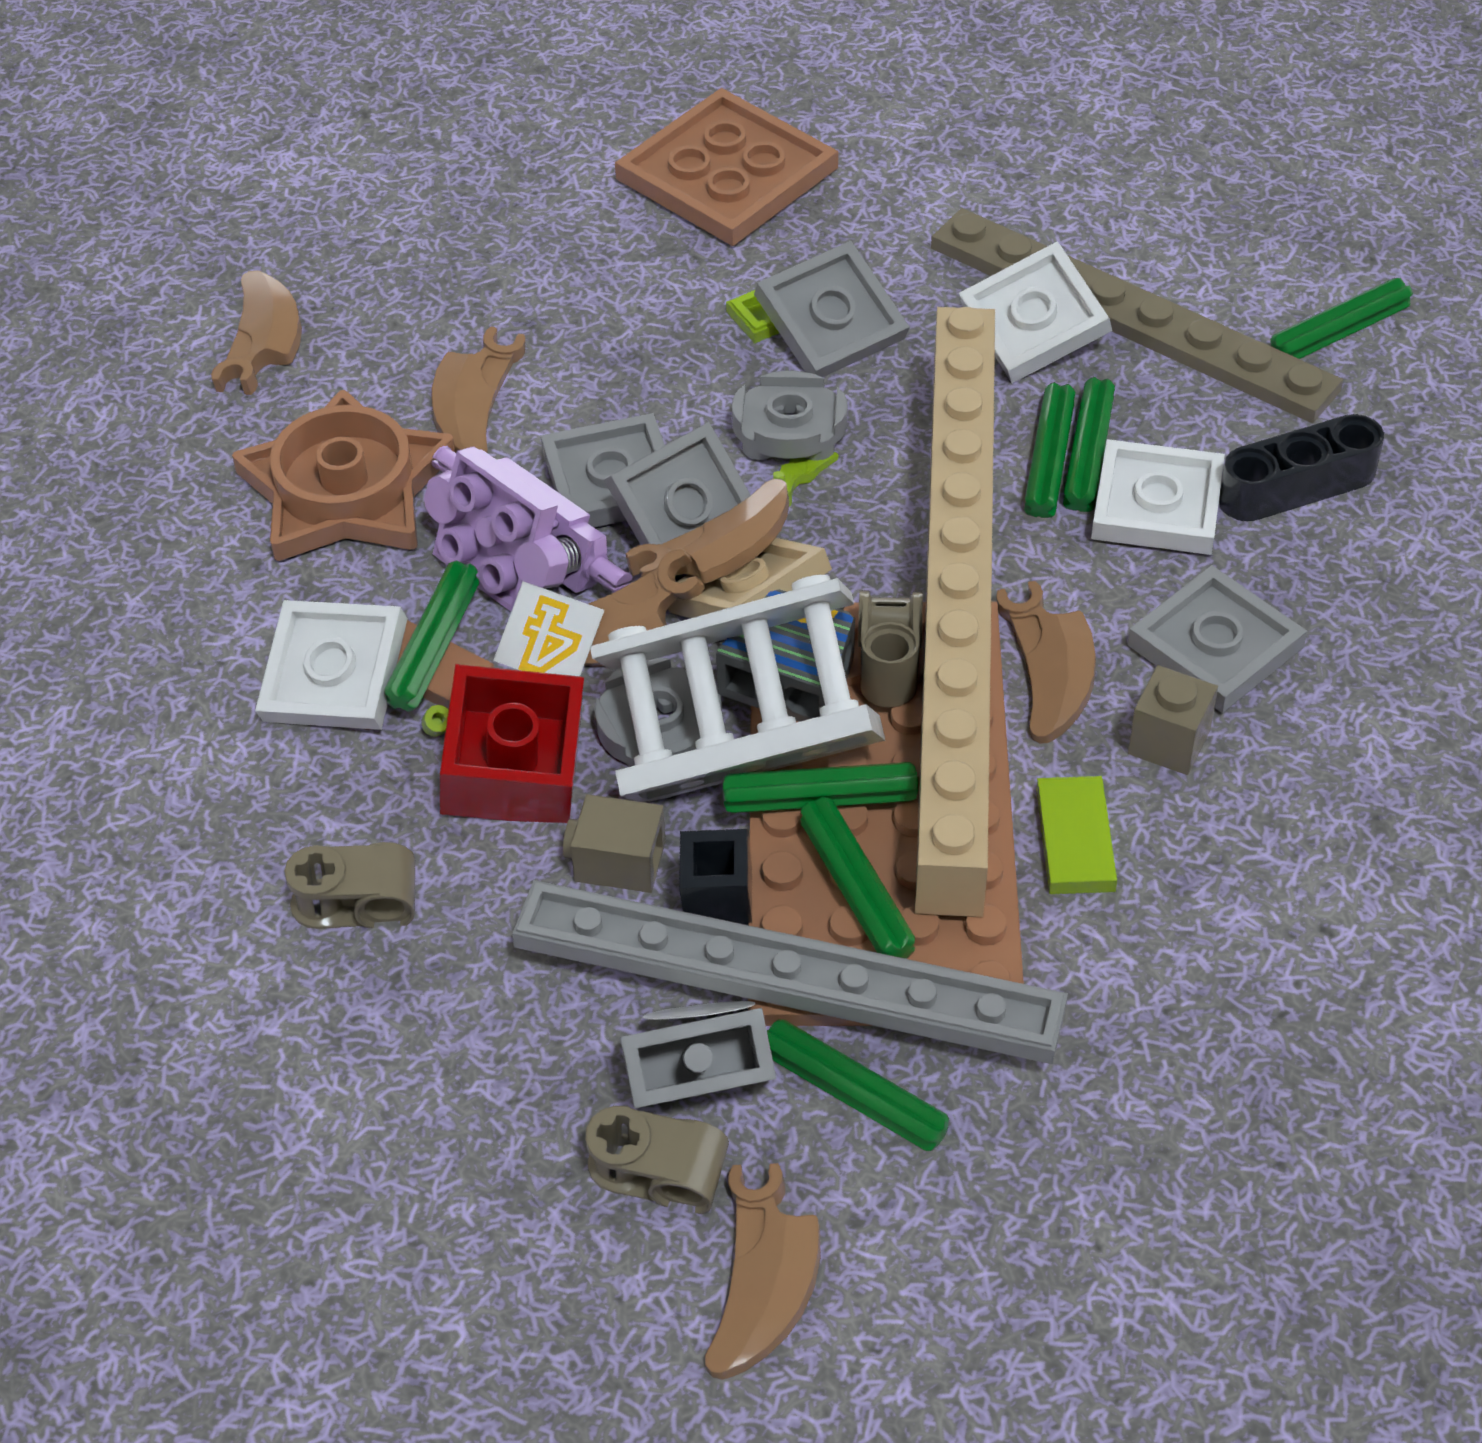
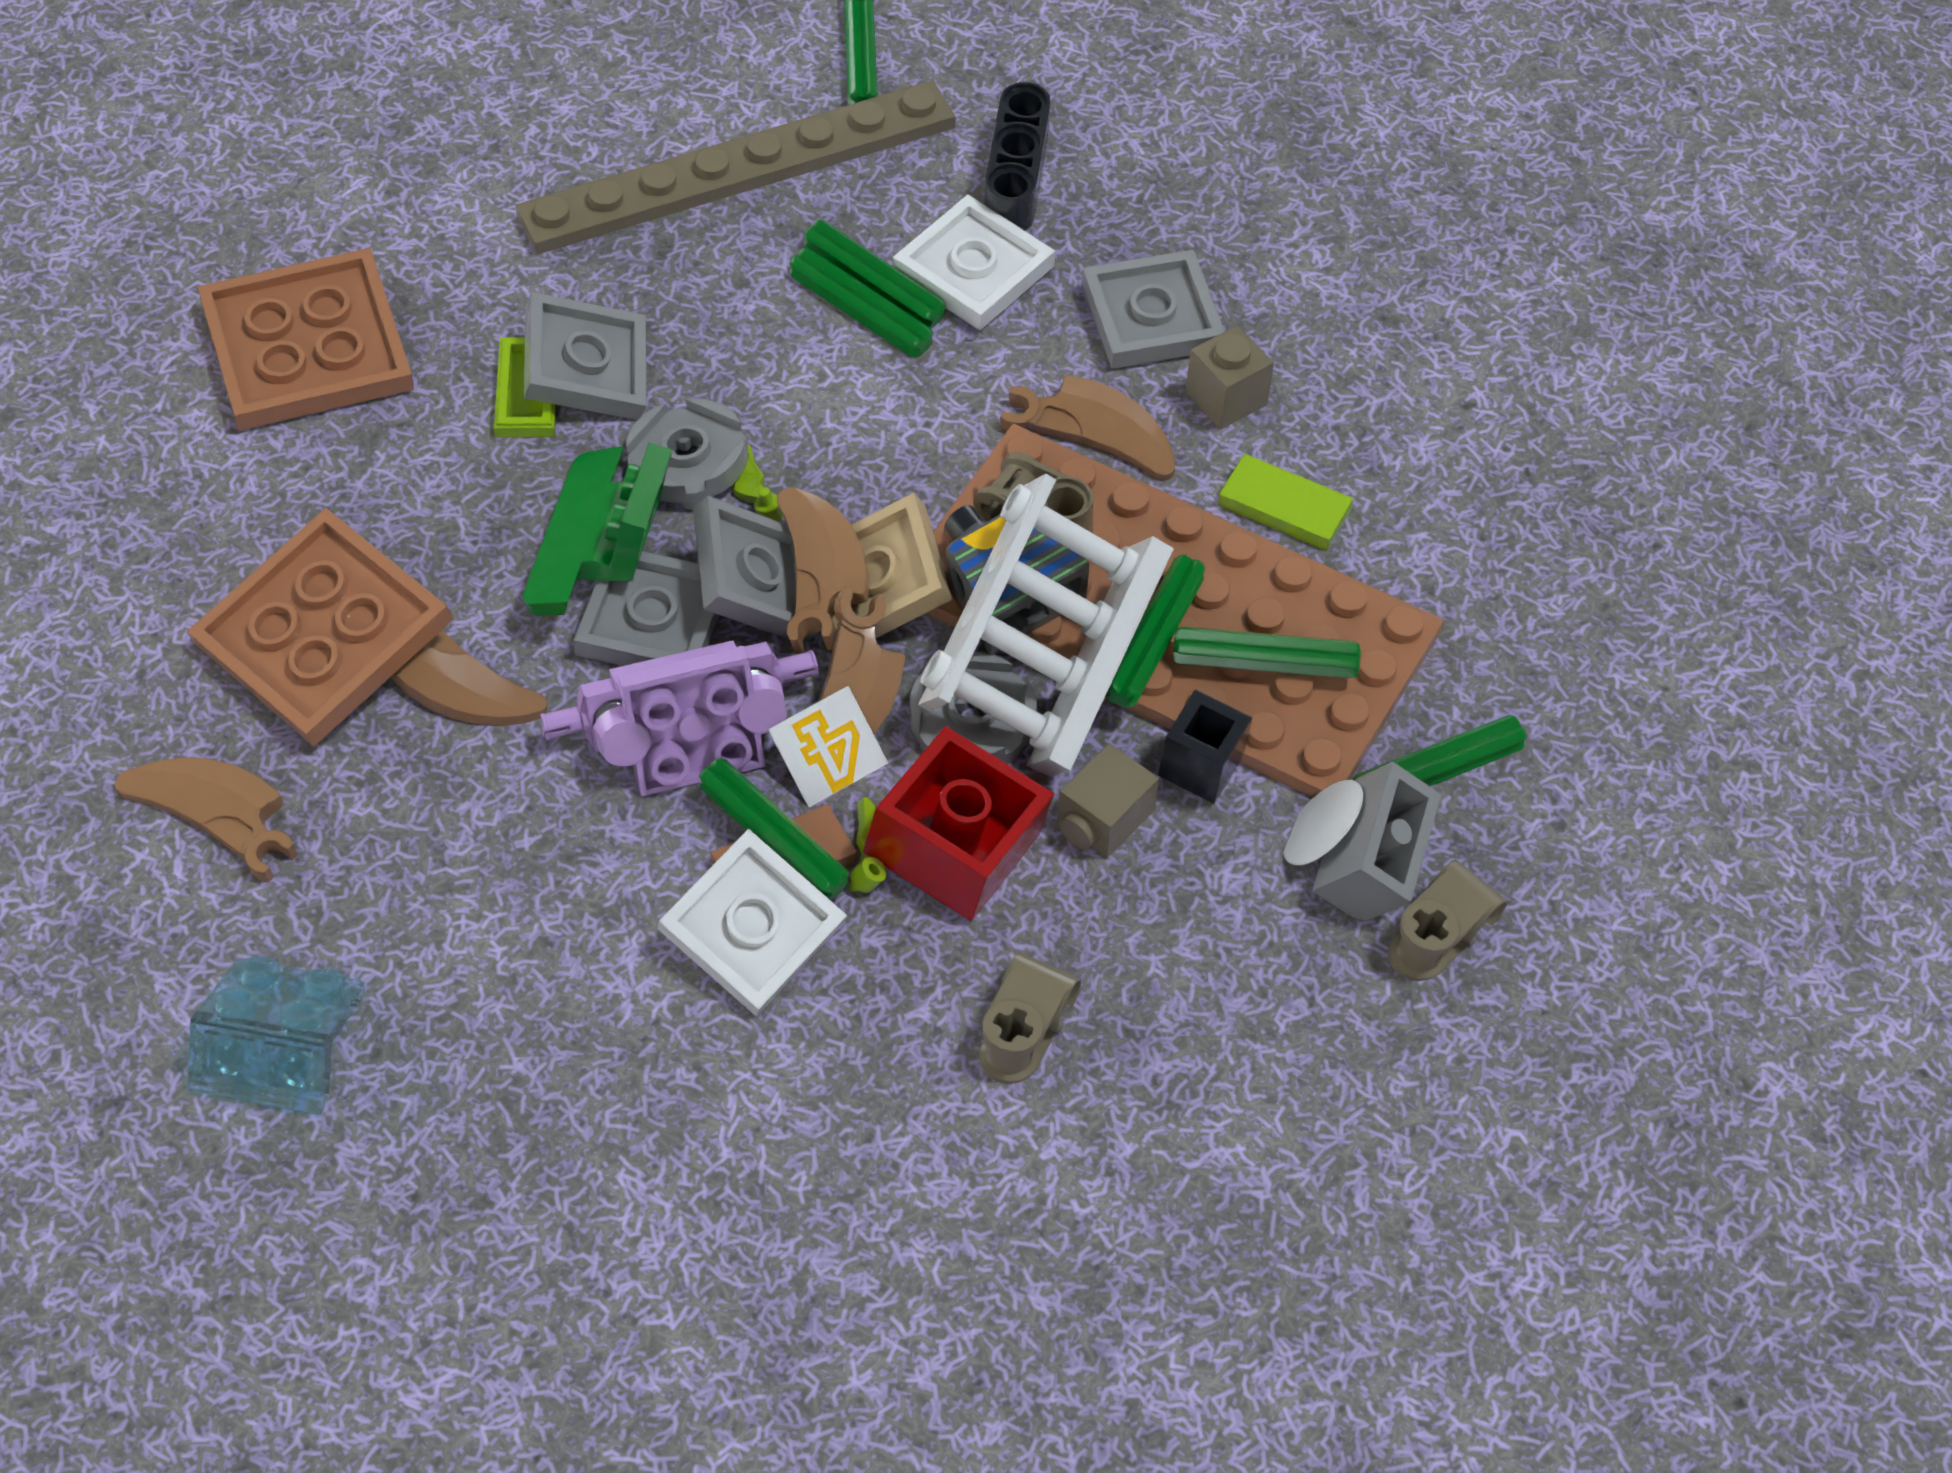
camera: 65 degrees left, 5 degrees up
(77, 437) = (270, 1034): none -> clear light blue bracket
(342, 477) = (497, 820): nougat plate -> none
(448, 295) = (320, 626): none -> nougat plate
(657, 398) = (596, 526): none -> green plate
(770, 1276) = (1582, 898): medium nougat piece -> none
(792, 971) = (1318, 749): light grey tile -> none
(958, 621) = (993, 414): tan brick -> none
(1039, 311) = (705, 222): white plate -> none

